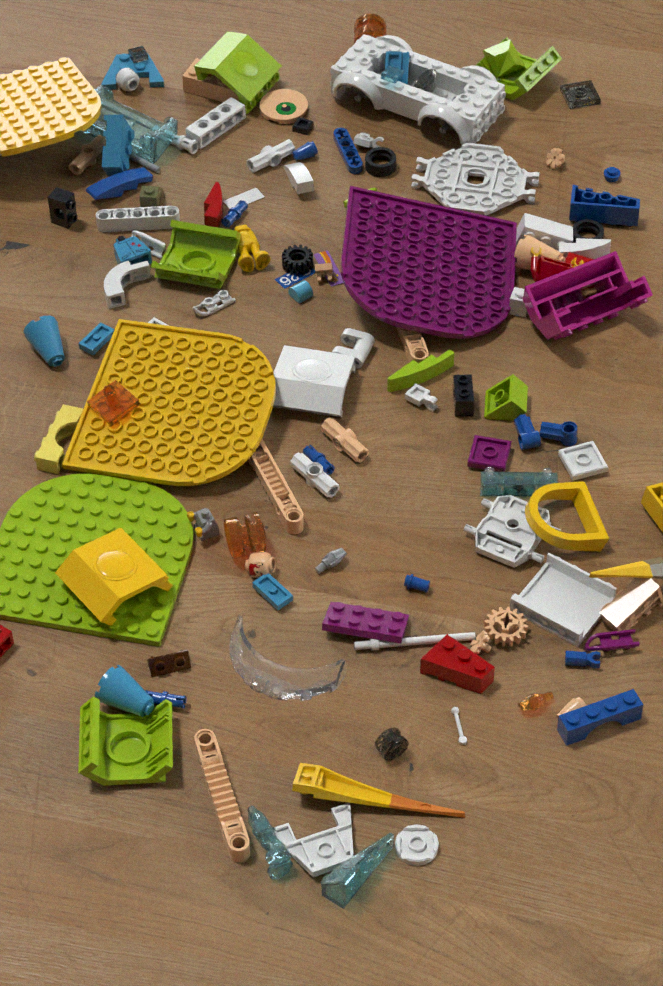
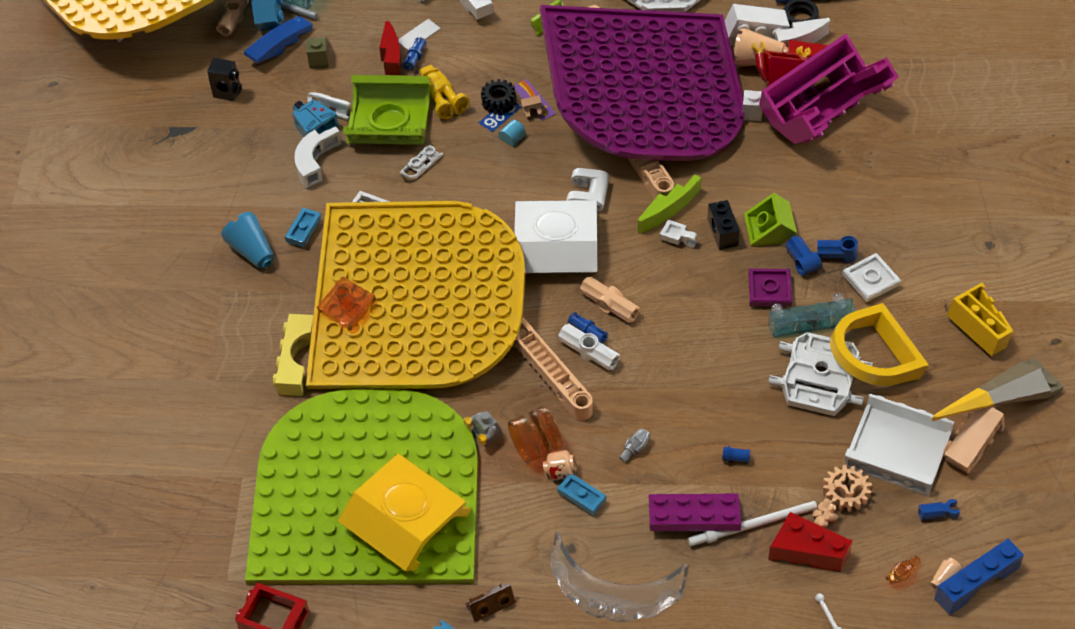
camera: 10 degrees left, 5 degrees up
(136, 218) = (309, 77): white beam -> none
(606, 643) = (960, 487): magenta piece -> none

